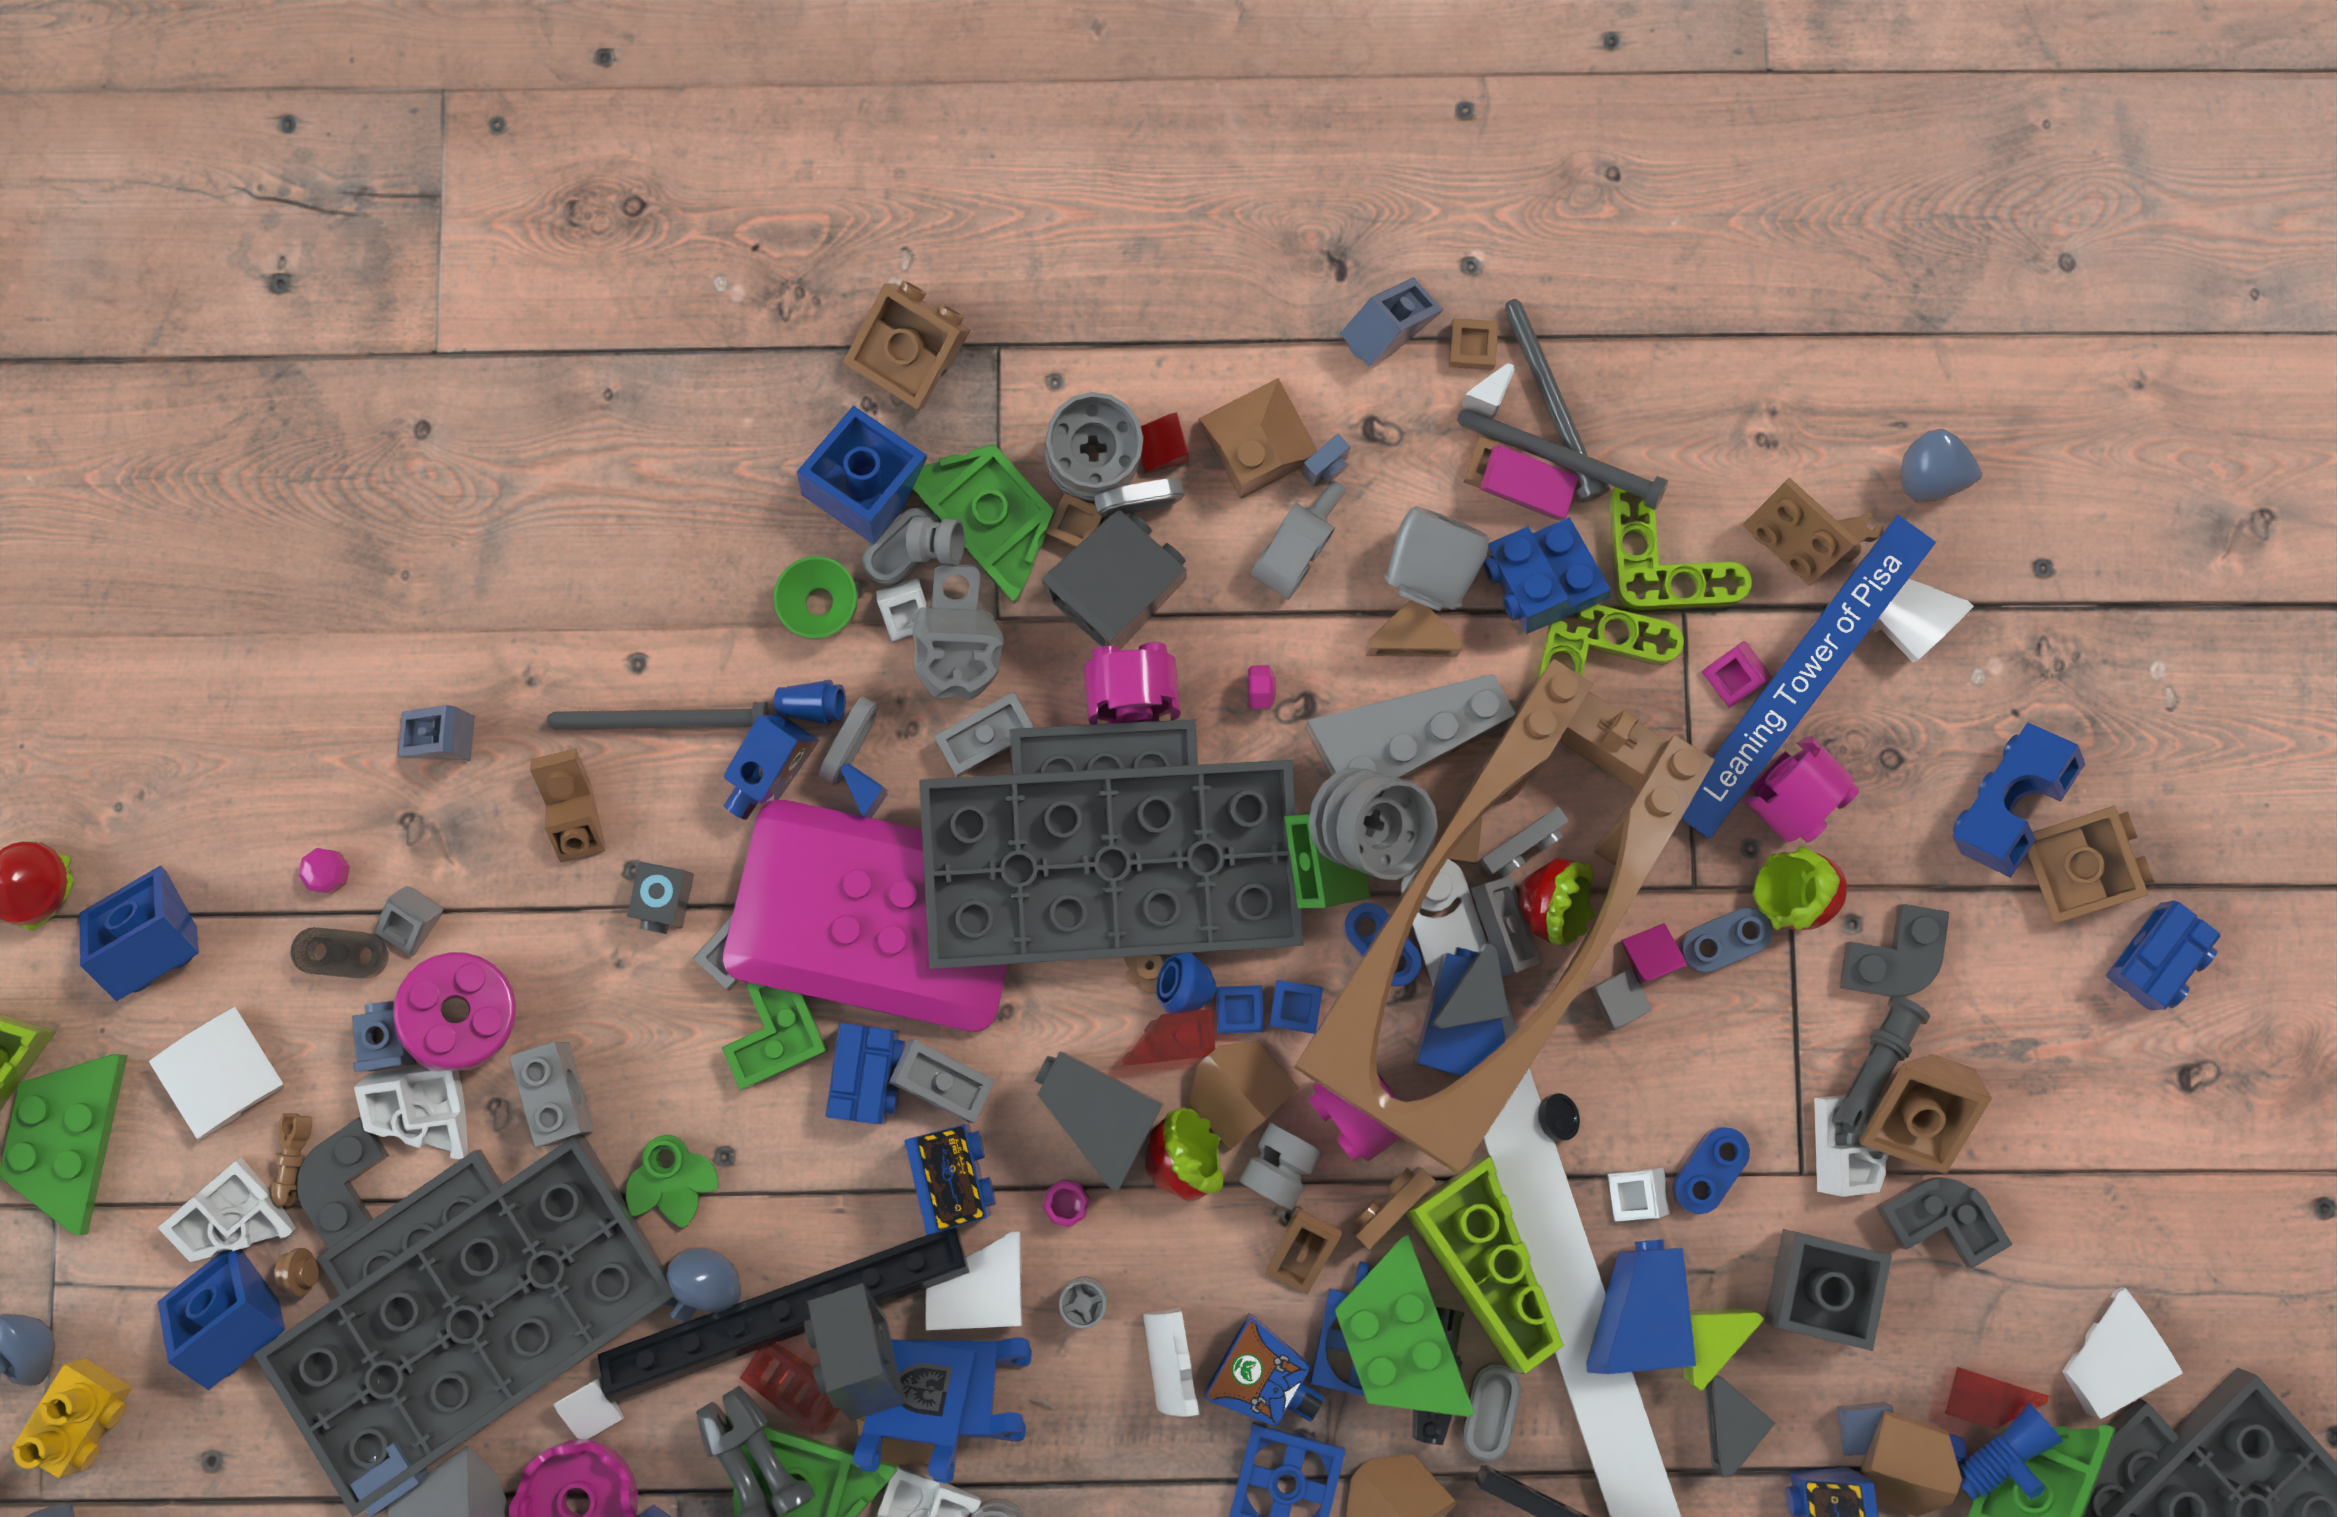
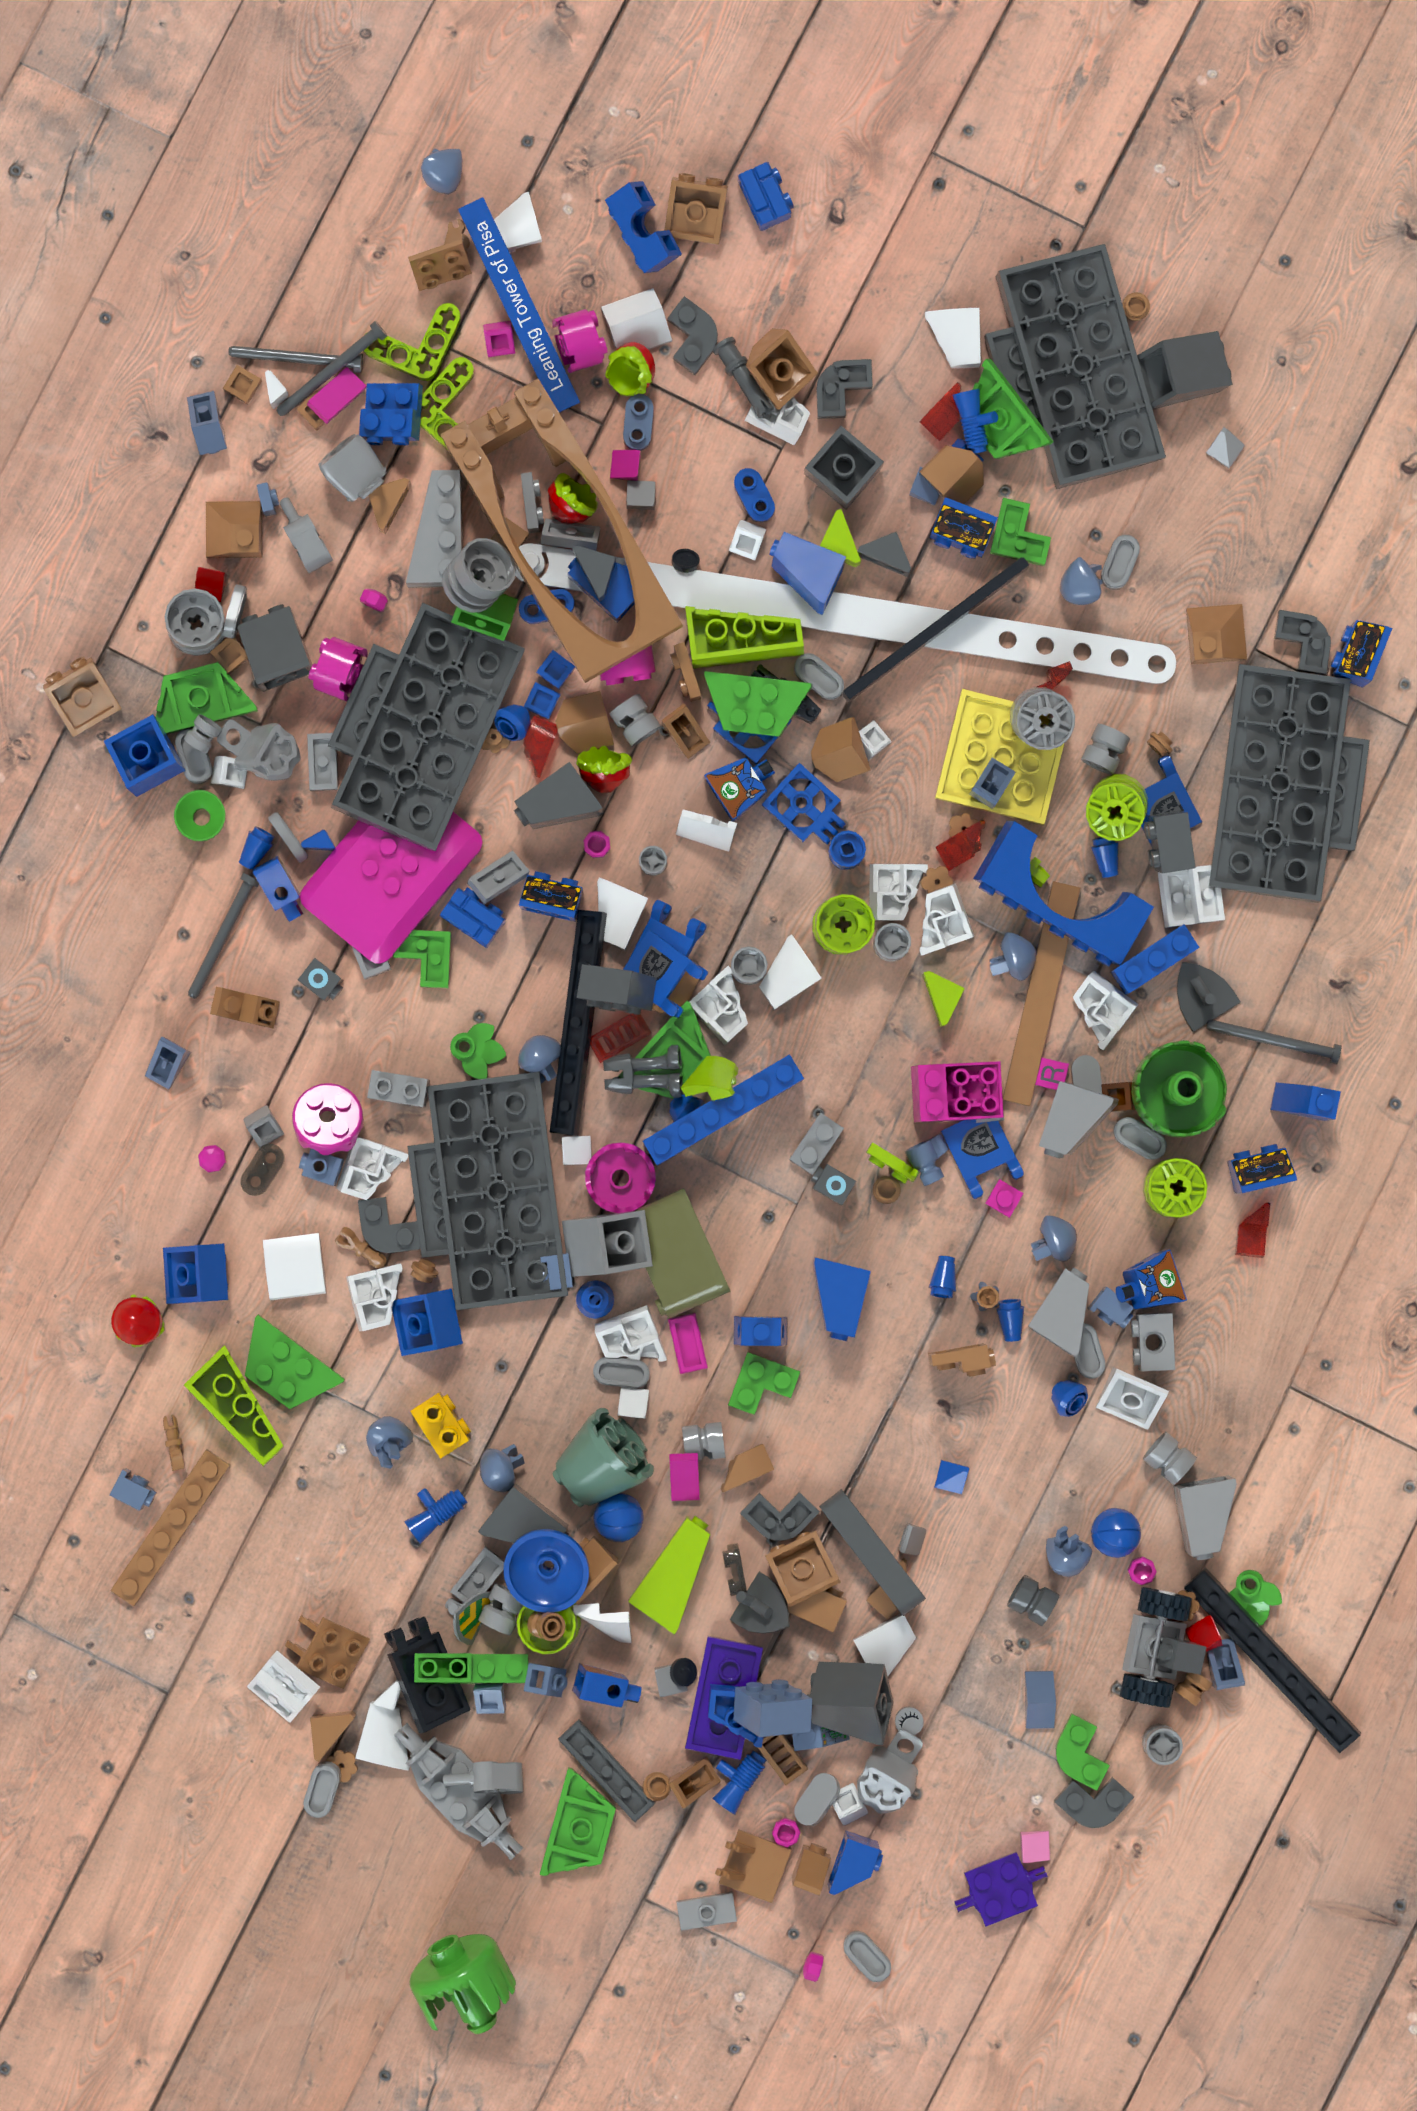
camera: 70 degrees left, 5 degrees up
(1877, 860) = (637, 320): none -> white slope

